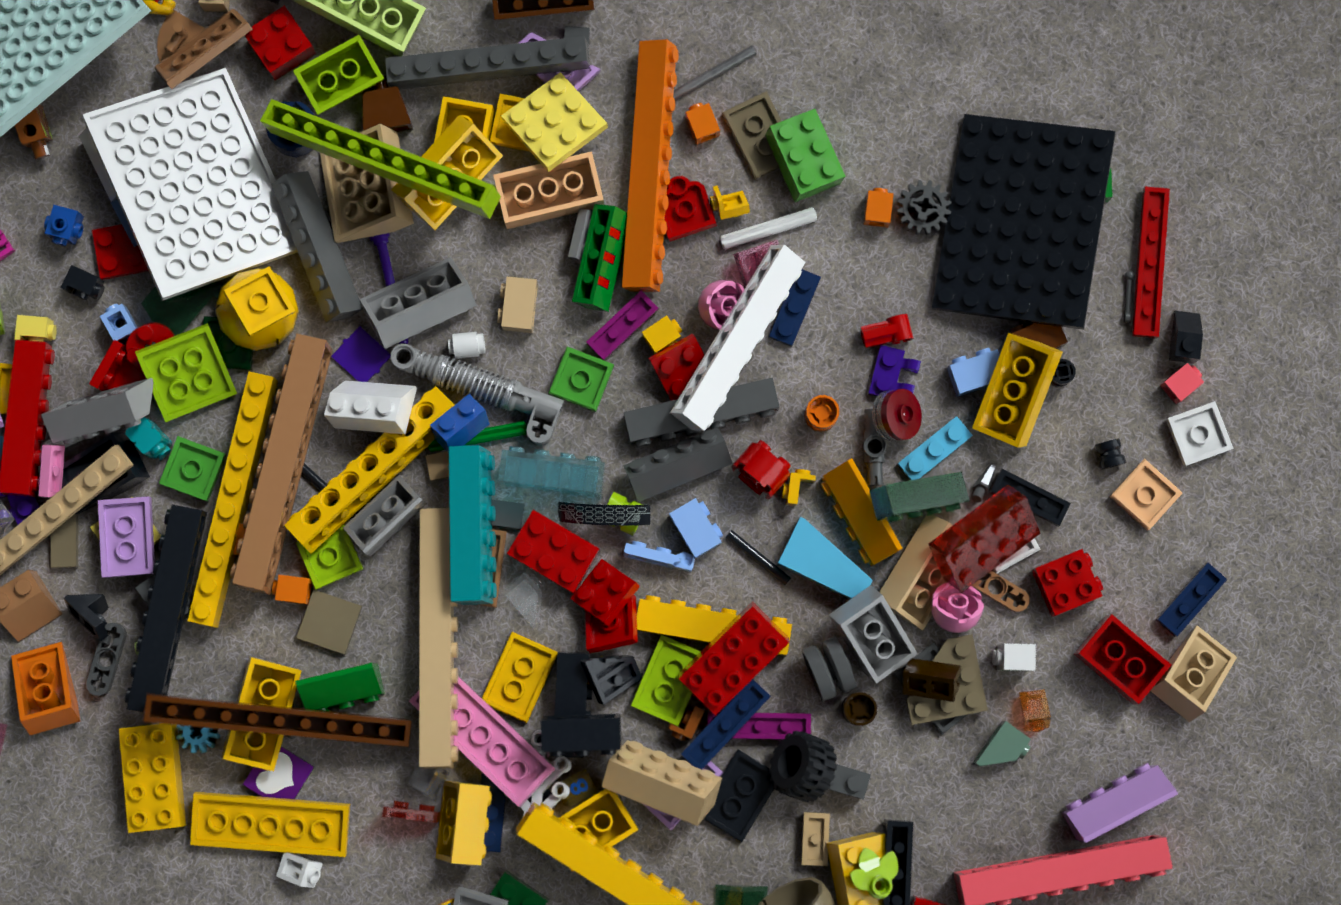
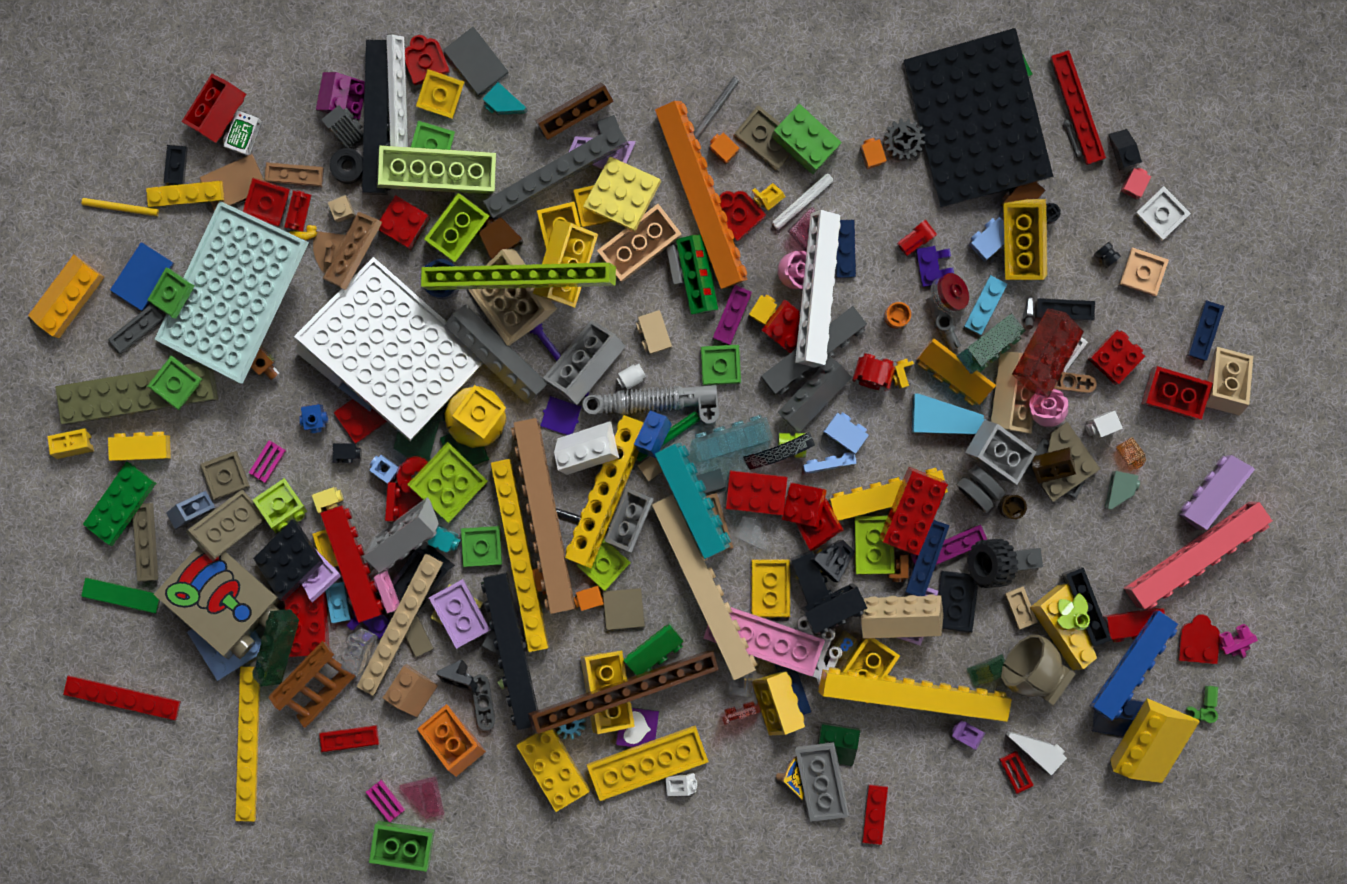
camera: 20 degrees left, 5 degrees up
(758, 557) = (897, 433): black bar -> none

